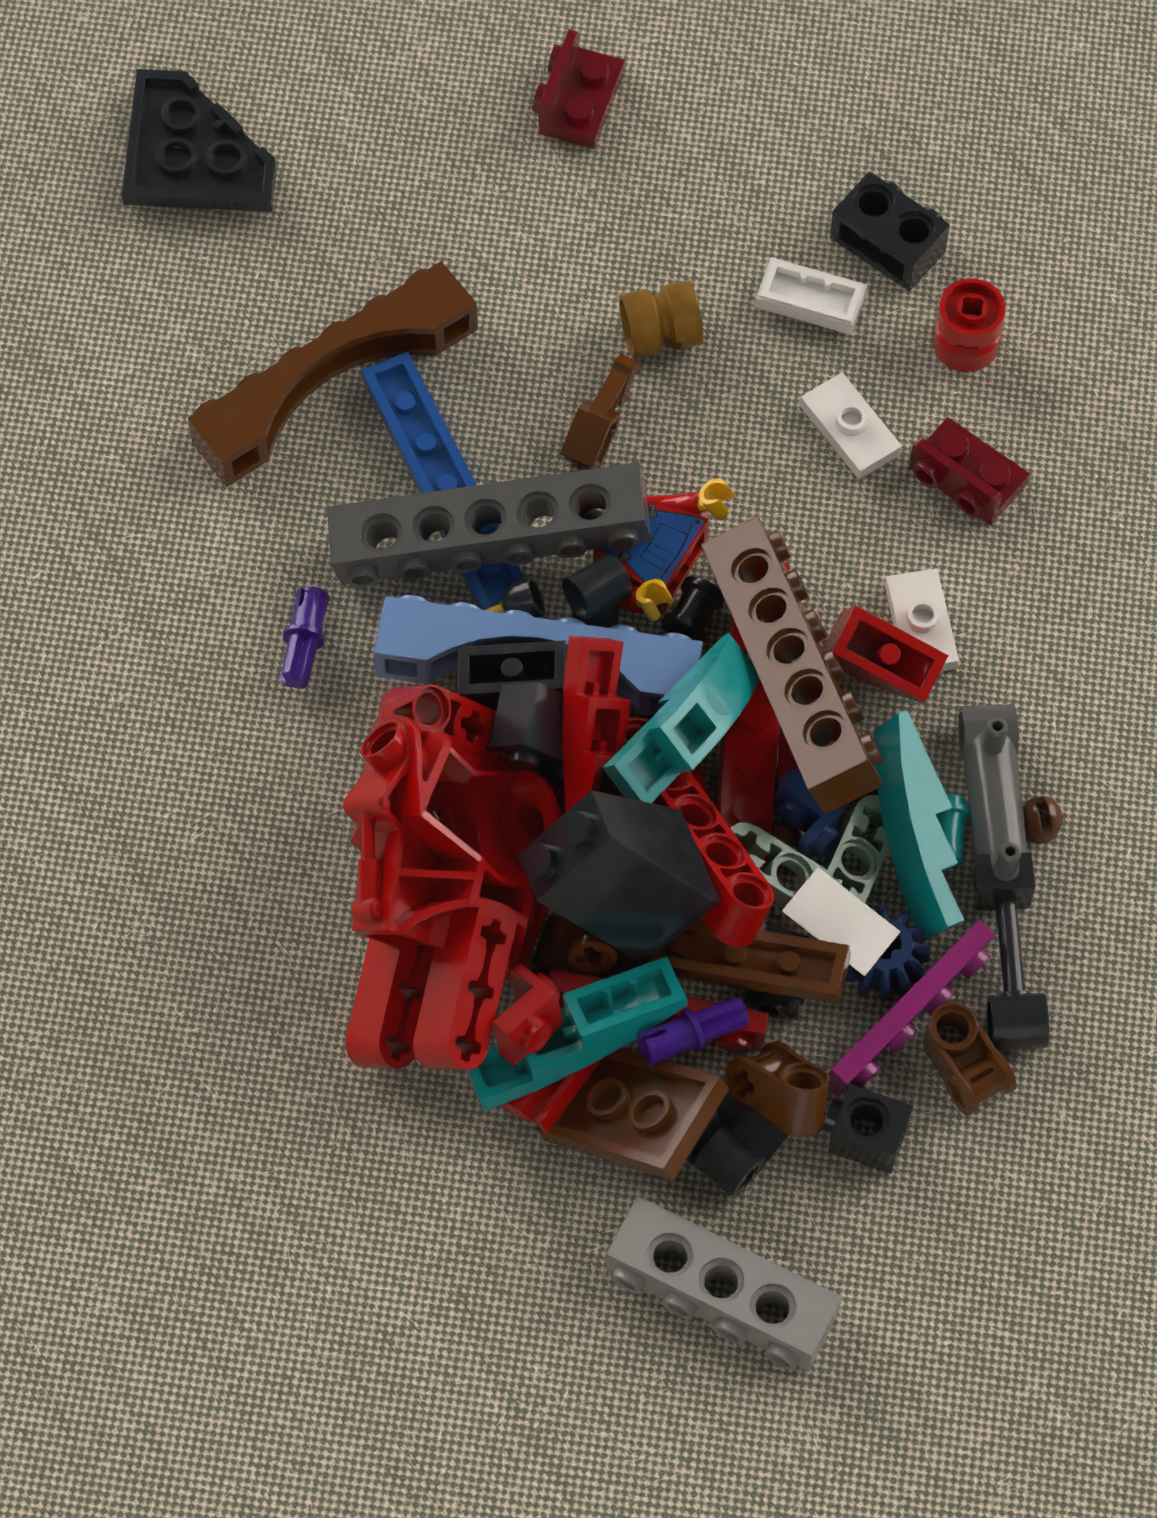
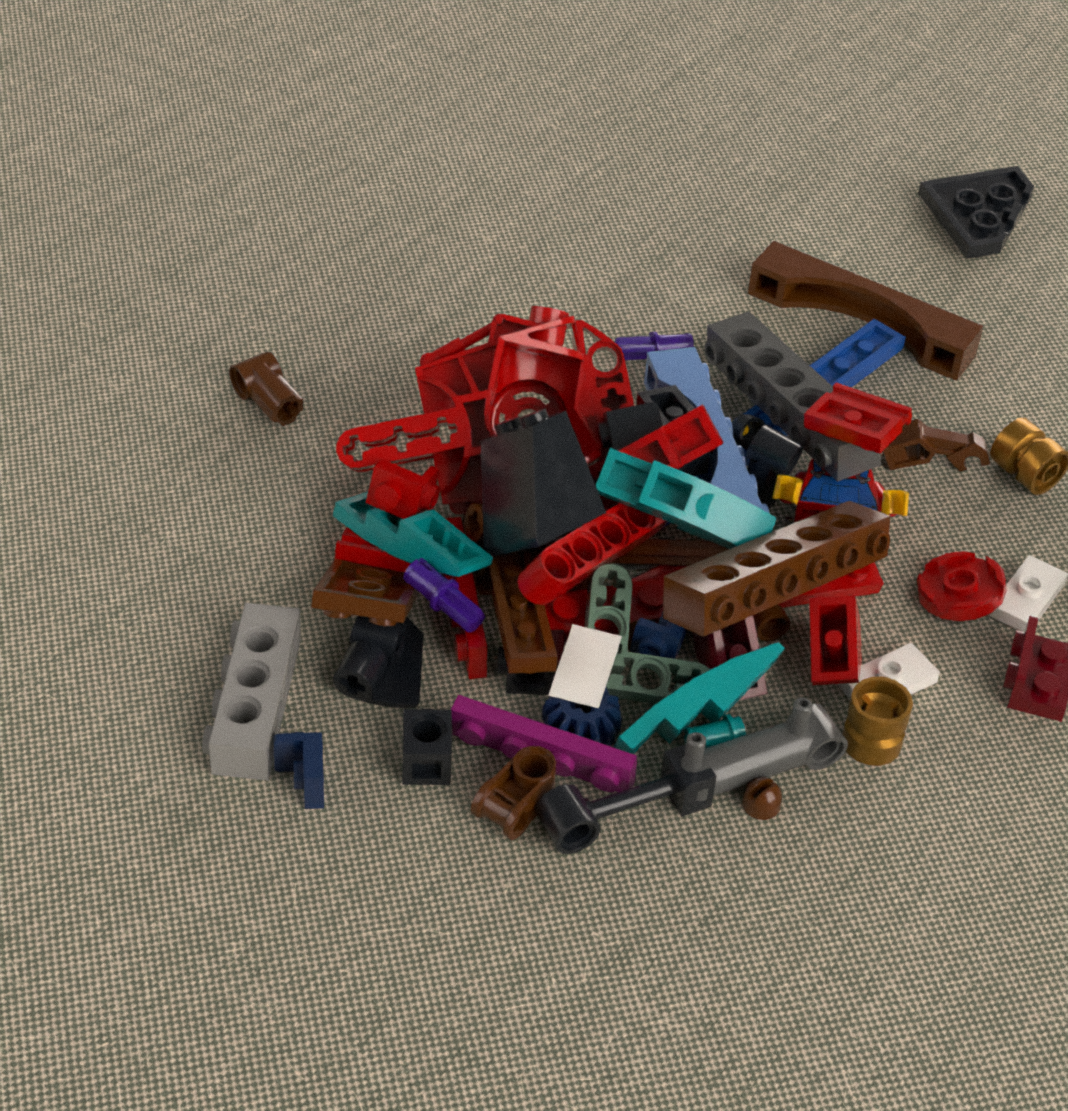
camera: 65 degrees right, 20 degrees down
(186, 1121) = (264, 383): none -> reddish brown piece
(624, 479) = (857, 418): none -> red plate
(781, 1088) = (429, 677): reddish brown piece -> none
(822, 487) = (961, 586): none -> red tile
(861, 1259) = (304, 756): none -> dark blue bracket
(996, 661) = (877, 720): none -> pearl gold wheel

